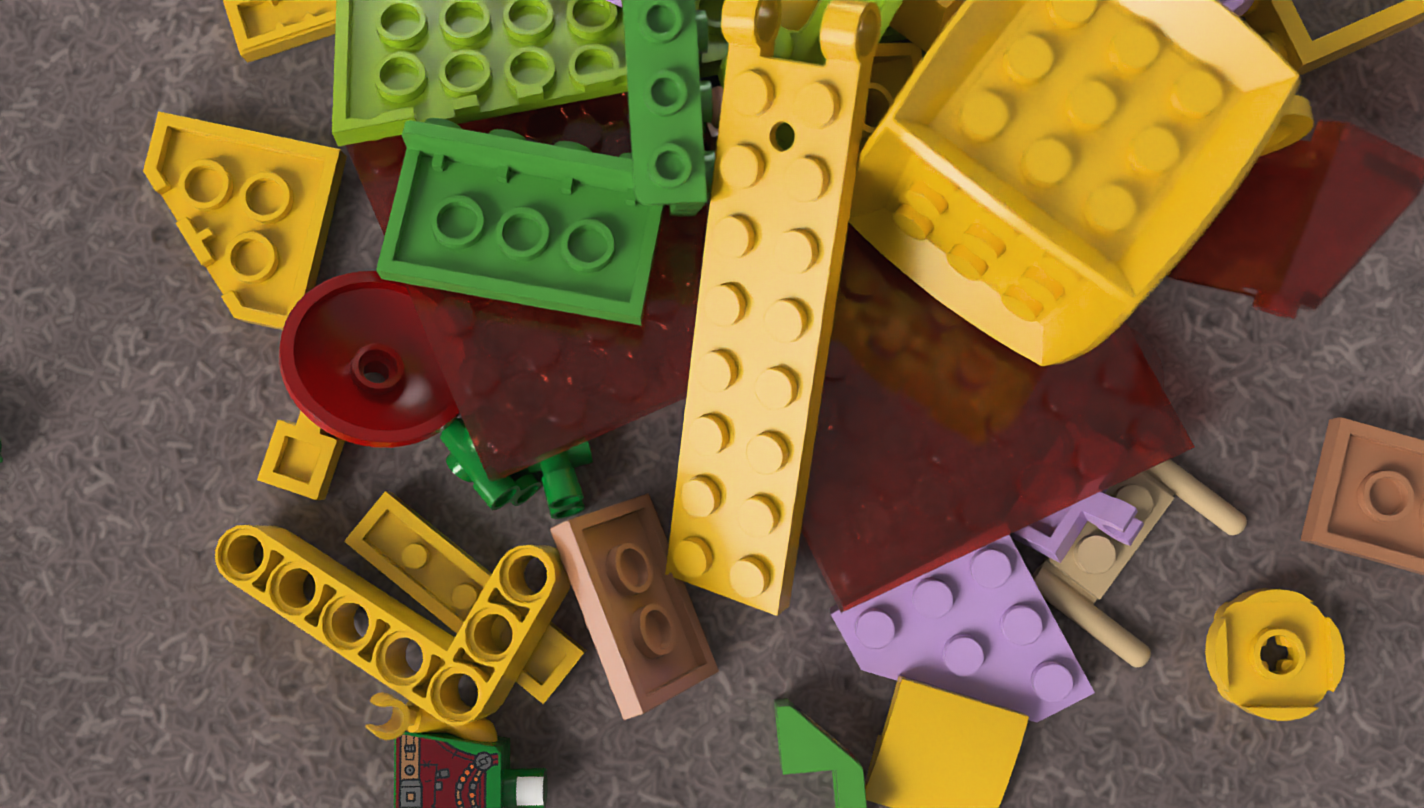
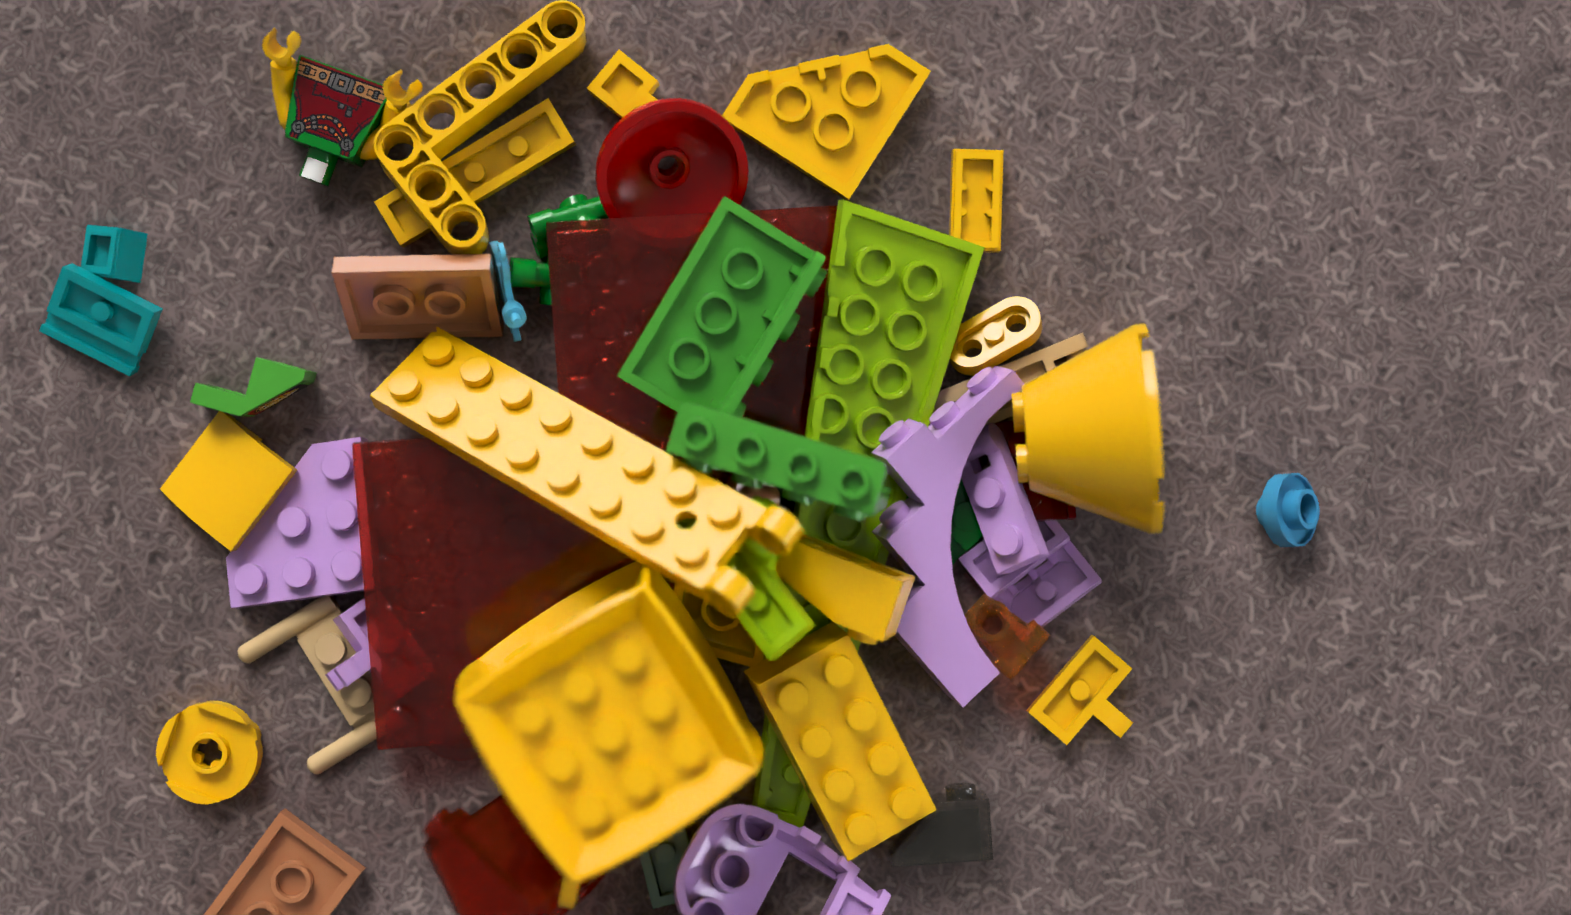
camera: 110 degrees right, 5 degrees up
(611, 481) = (512, 311): none -> medium azure piece

